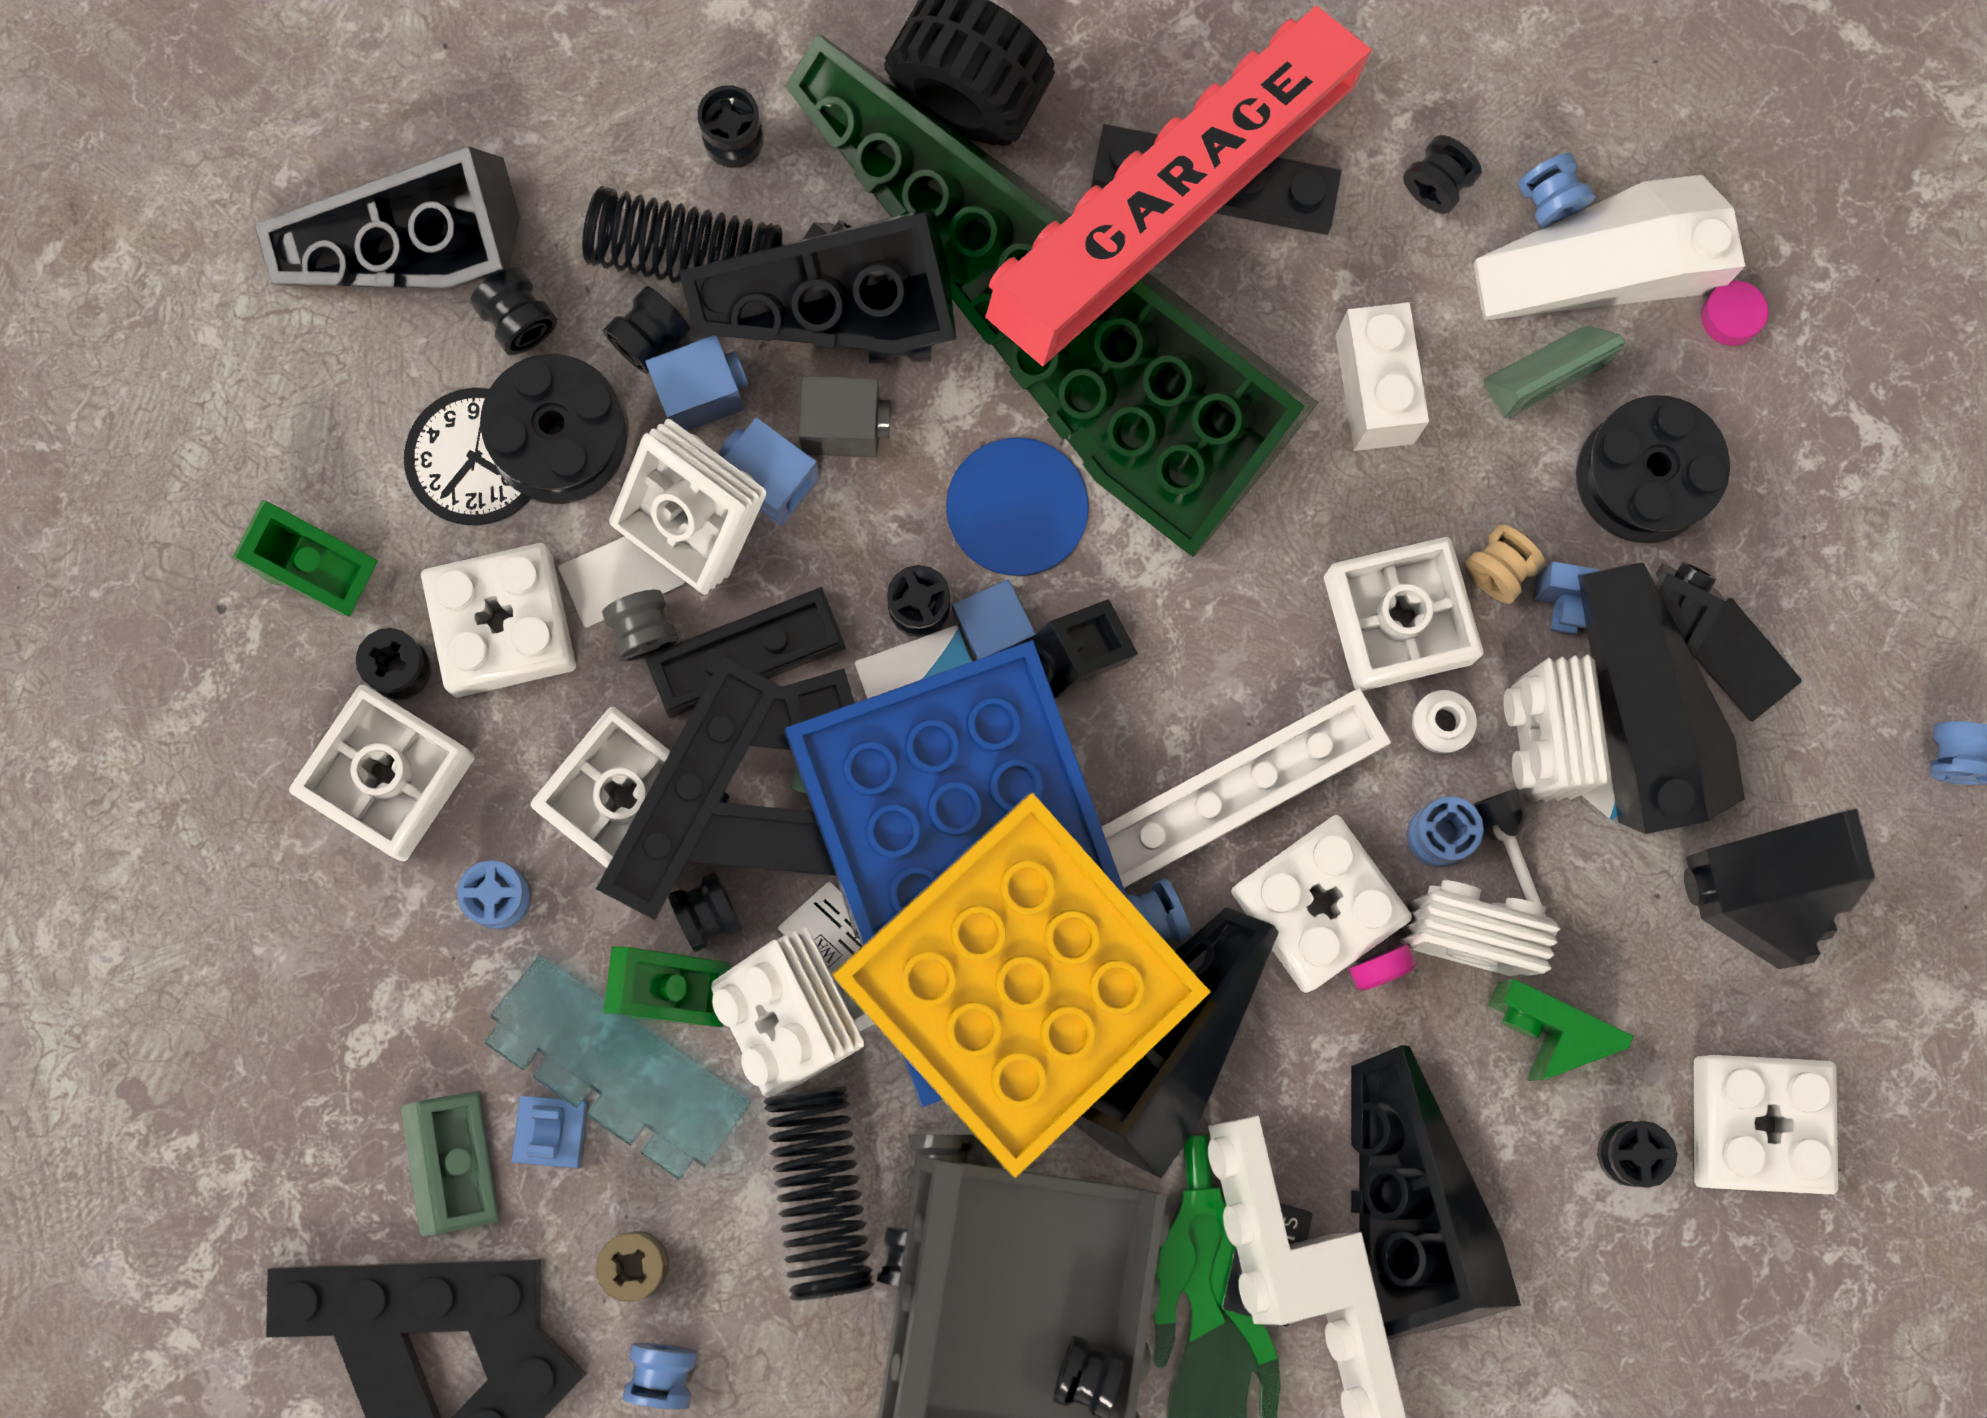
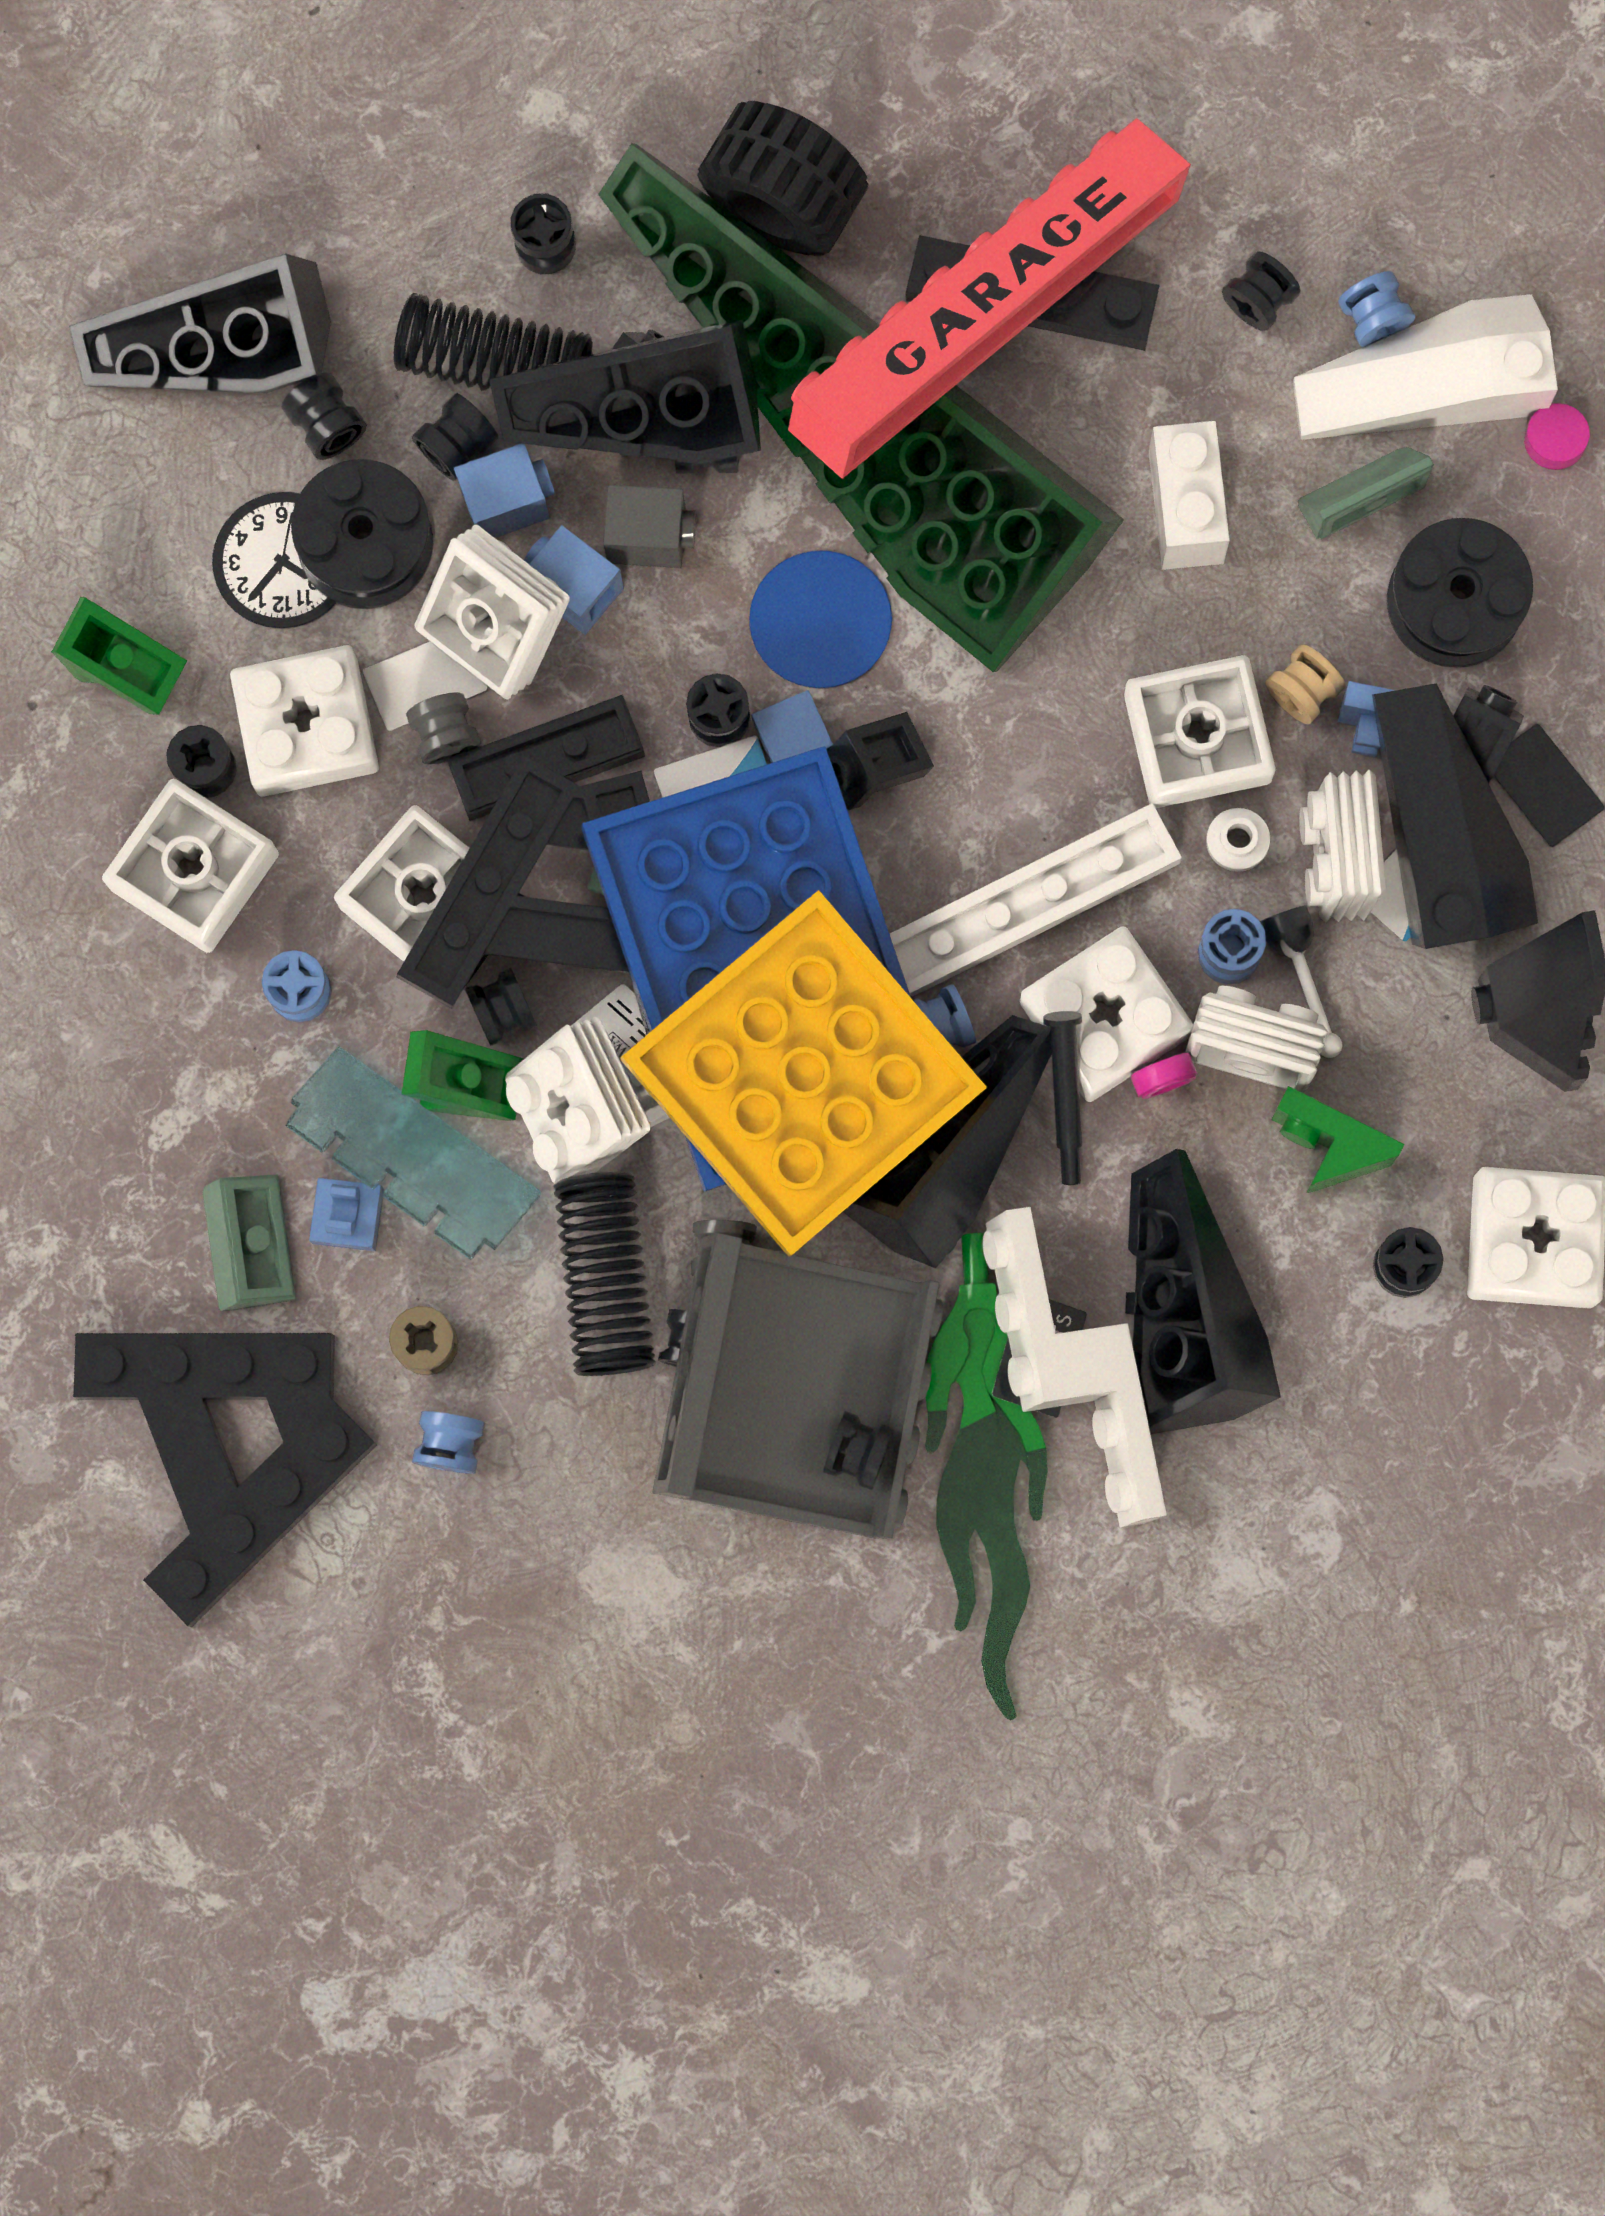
camera: 15 degrees right, 0 degrees up
(1286, 986) = (1066, 1091): none -> black piece

